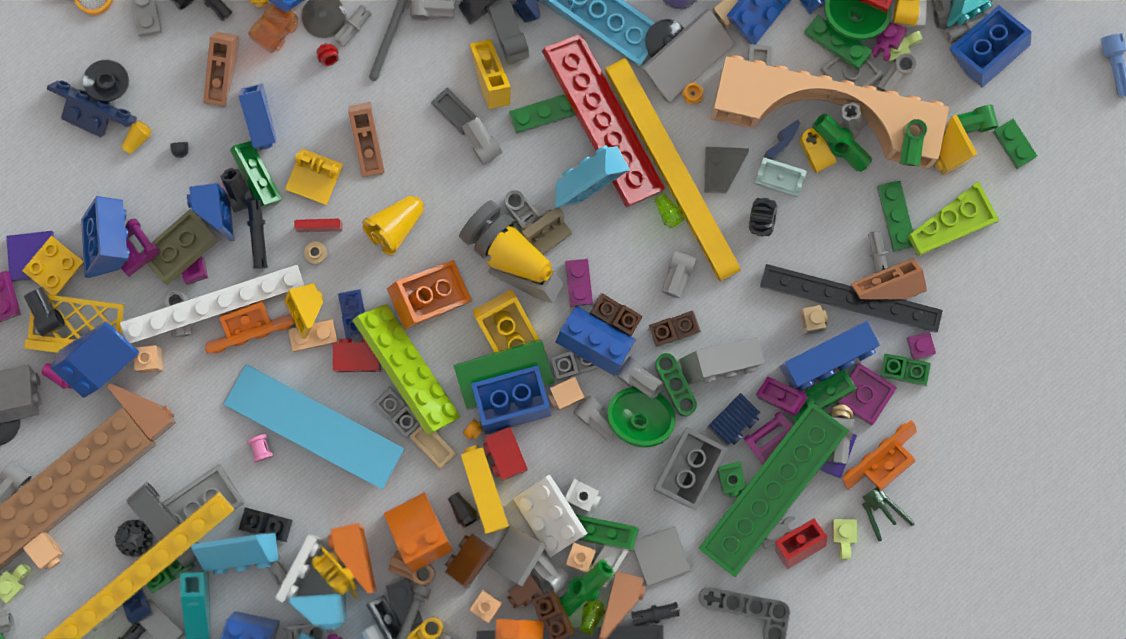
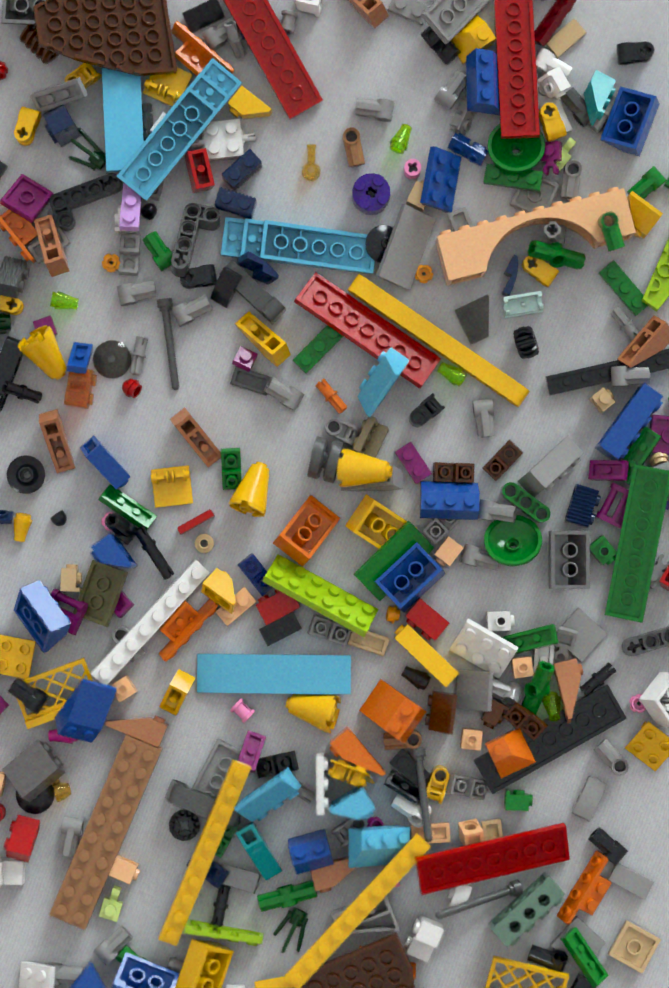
camera: 30 degrees left, 5 degrees up
(25, 432) = (61, 790): none -> clear yellow bar
(156, 216) = (70, 578): none -> tan brick
(165, 76) = (16, 472): none -> black dish
(202, 392) = (177, 692): none -> yellow slope
(246, 494) = (251, 749): none -> magenta plate
(337, 488) = (316, 710): none -> yellow cone
(346, 383) = (280, 628): none -> black plate
(386, 188) = (231, 468): none -> green slope
(460, 84) = (244, 359): none -> magenta plate
(529, 169) = (331, 396): none -> orange axle
(621, 235) = (428, 409): none -> black piece
(642, 554) = (566, 641): none -> light grey plate
(849, 305) = (623, 376): none -> light grey piece

